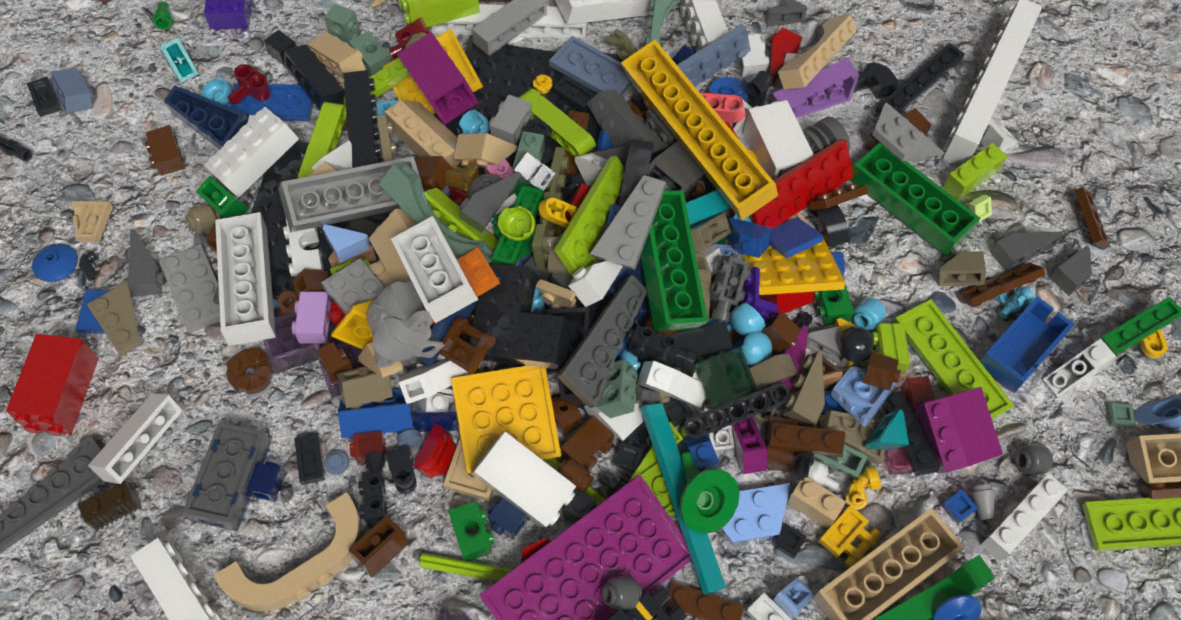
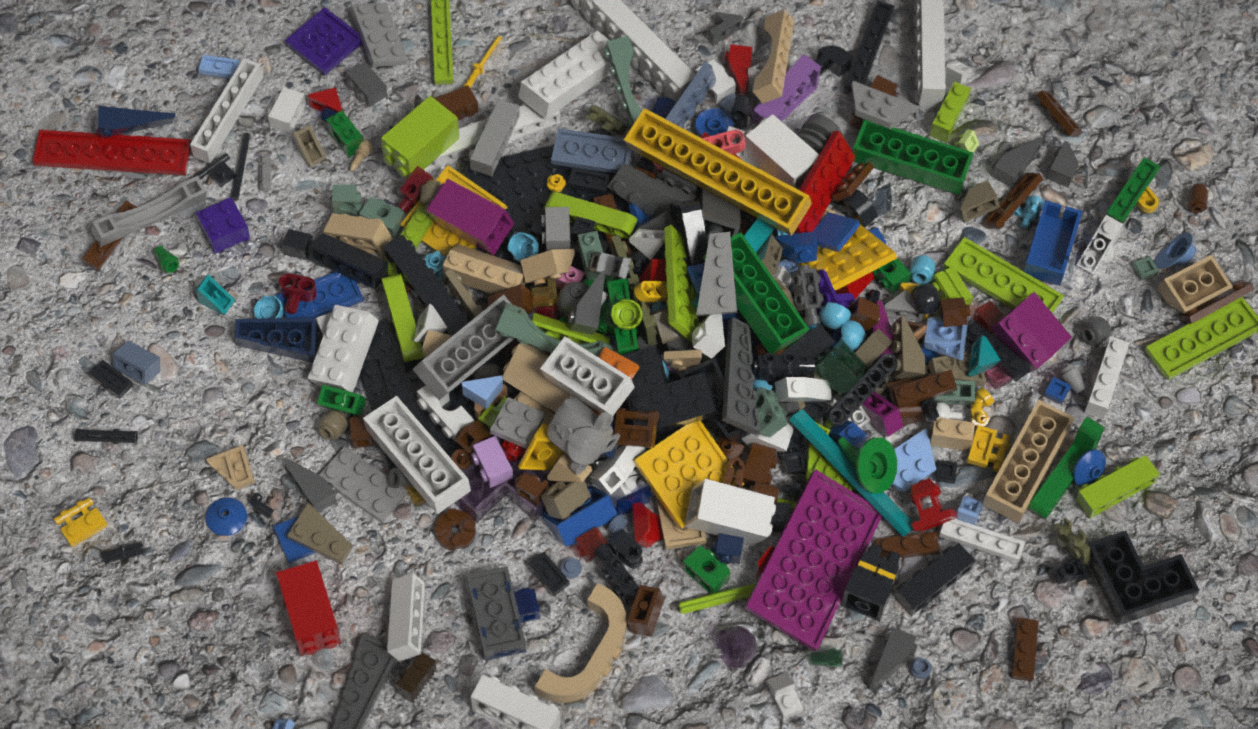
camera: 25 degrees left, 0 degrees up
(164, 150) = (257, 380): reddish brown brick -> none
(555, 446) = (738, 475): none -> reddish brown beam
(621, 593) = (846, 560): dark grey head -> none
(743, 586) = (931, 516): none -> red tile

